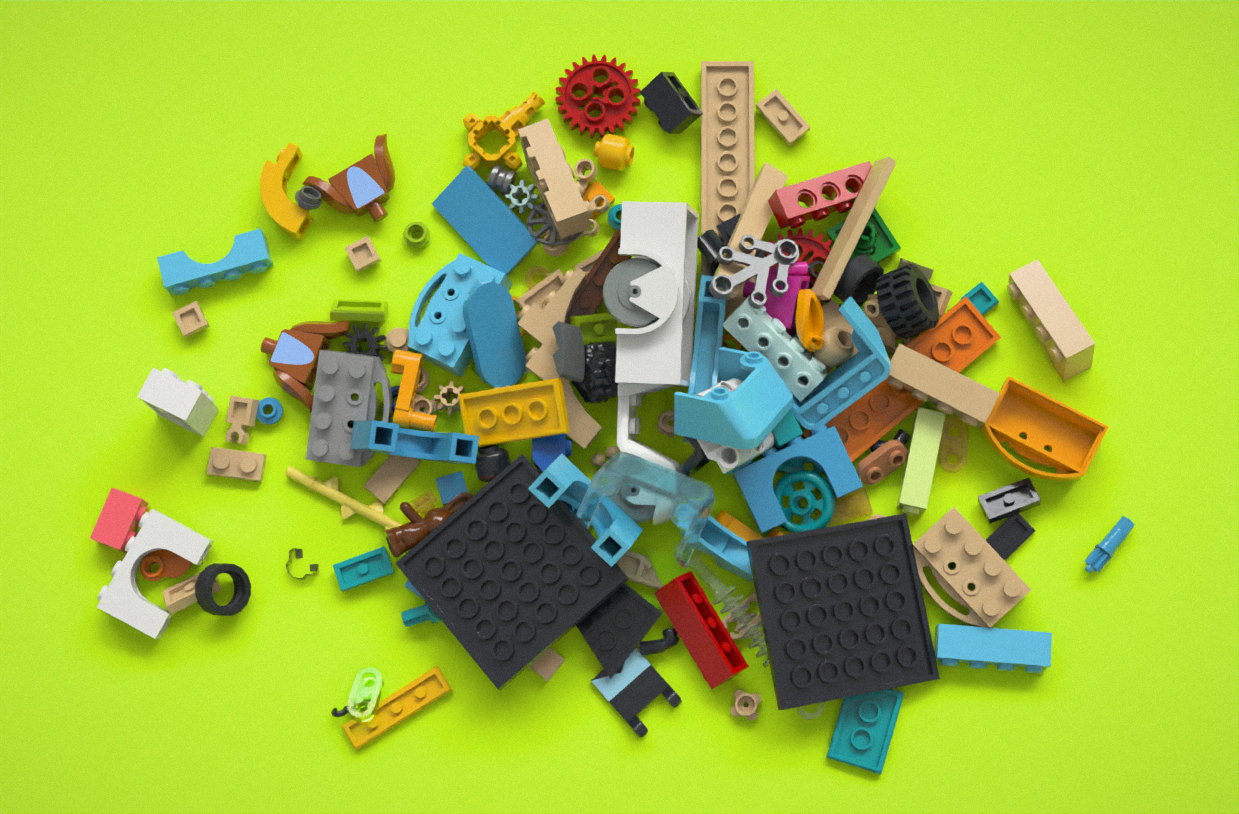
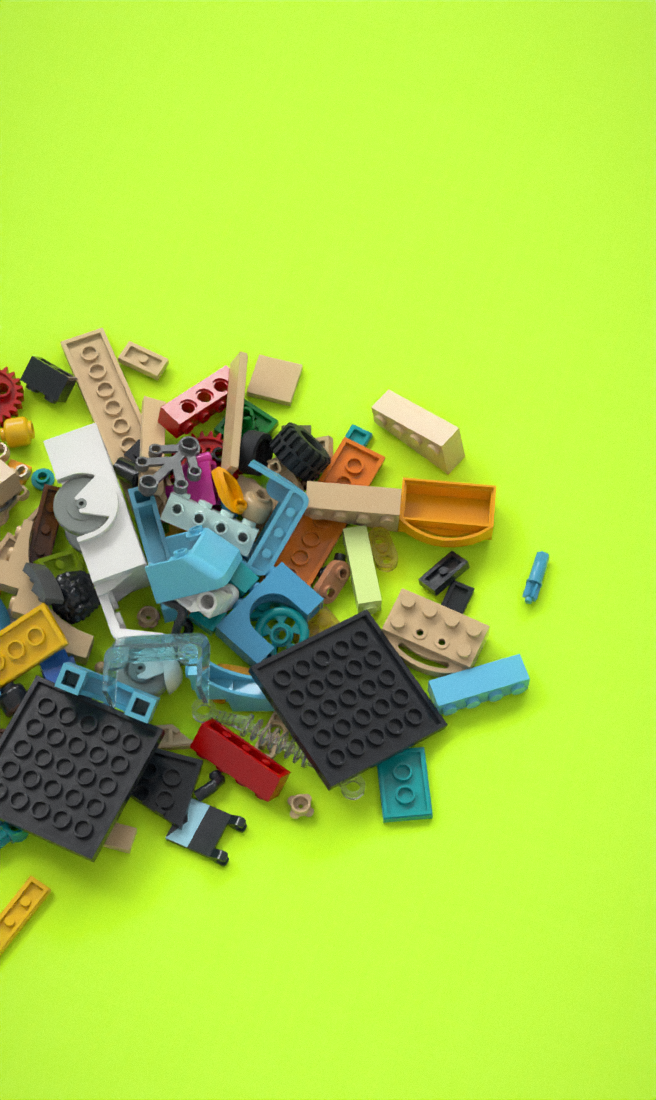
camera: 30 degrees left, 15 degrees down
(917, 195) = (274, 380): none -> tan tile

